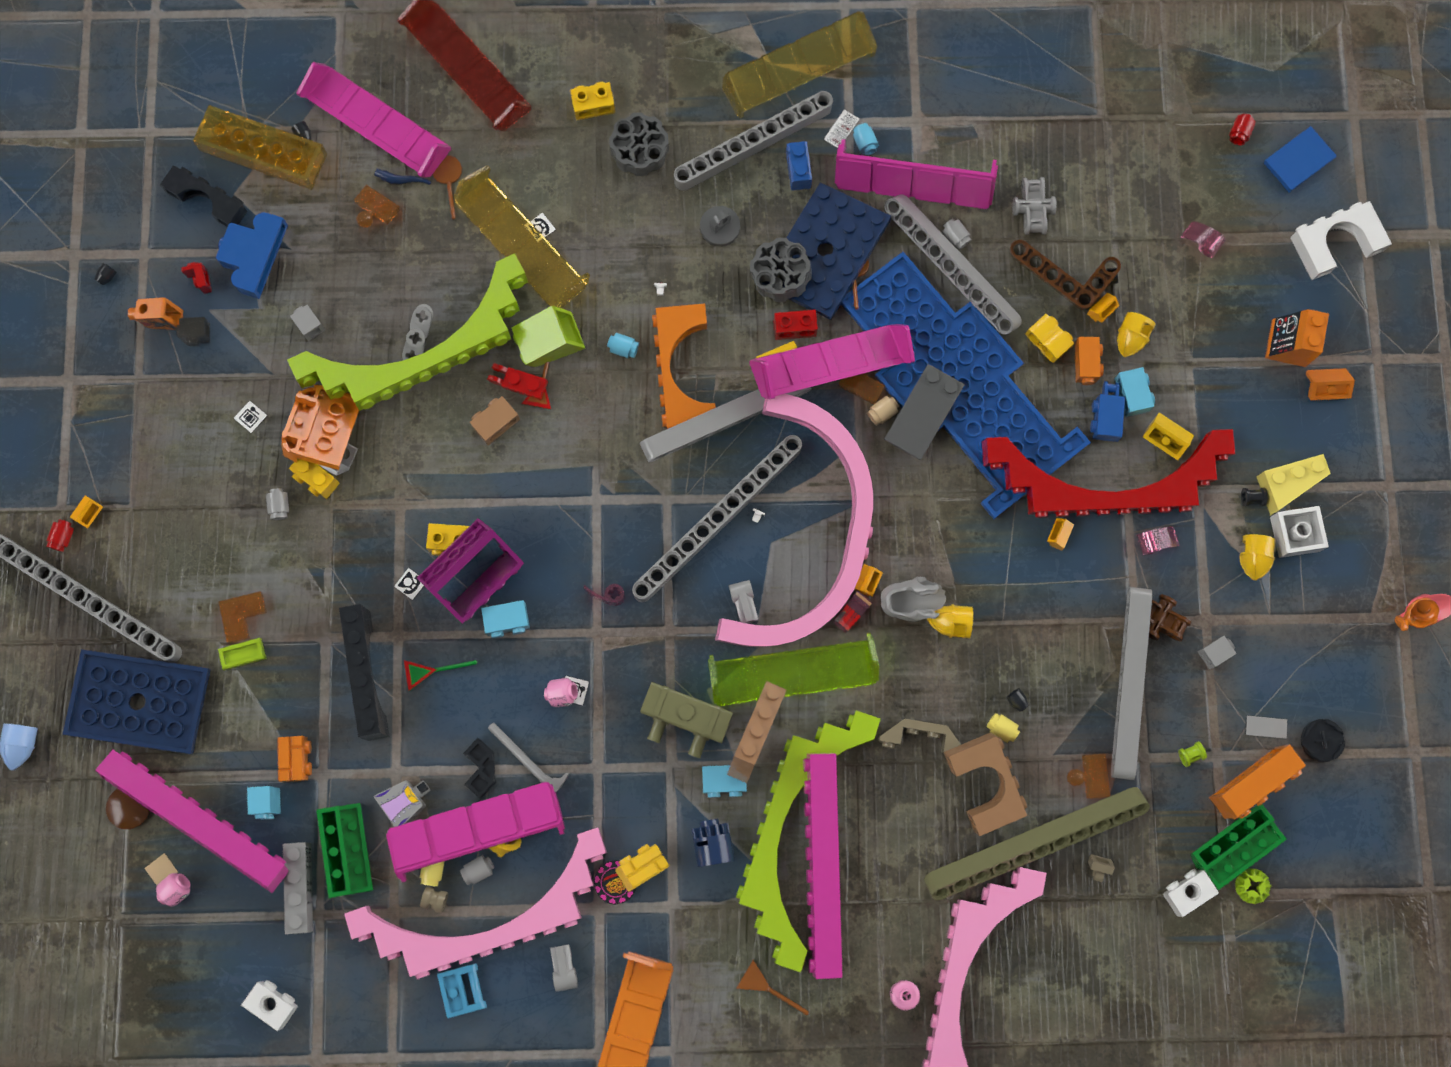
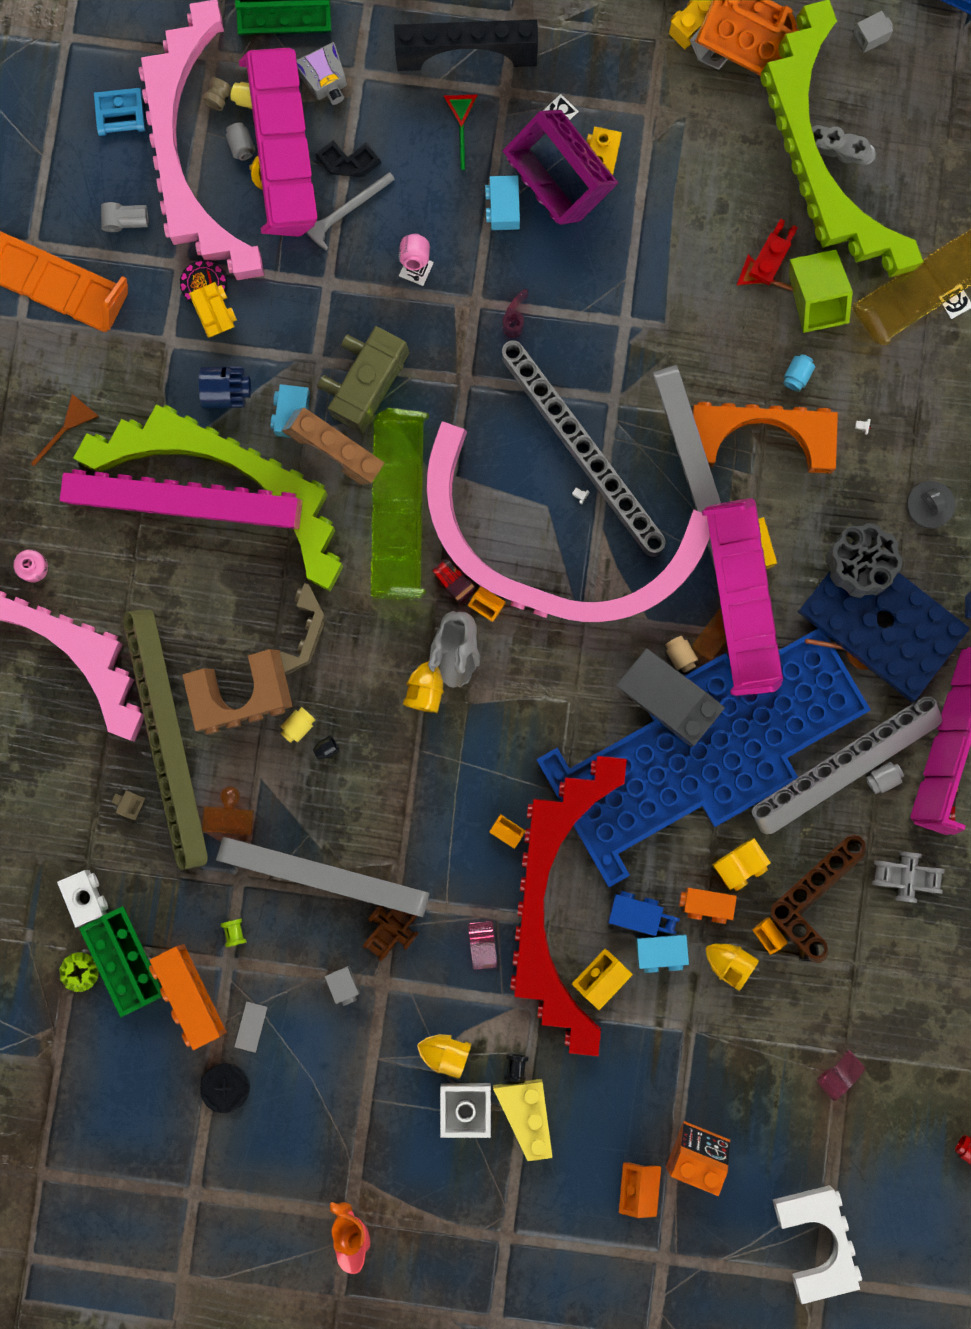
camera: 105 degrees right, 5 degrees up
(494, 420) = (731, 219): medium nougat brick -> none
(743, 597) = (490, 462): light grey piece -> none
(795, 324) = (797, 570): red brick -> none
(1300, 159) = (928, 1218): blue tile -> none

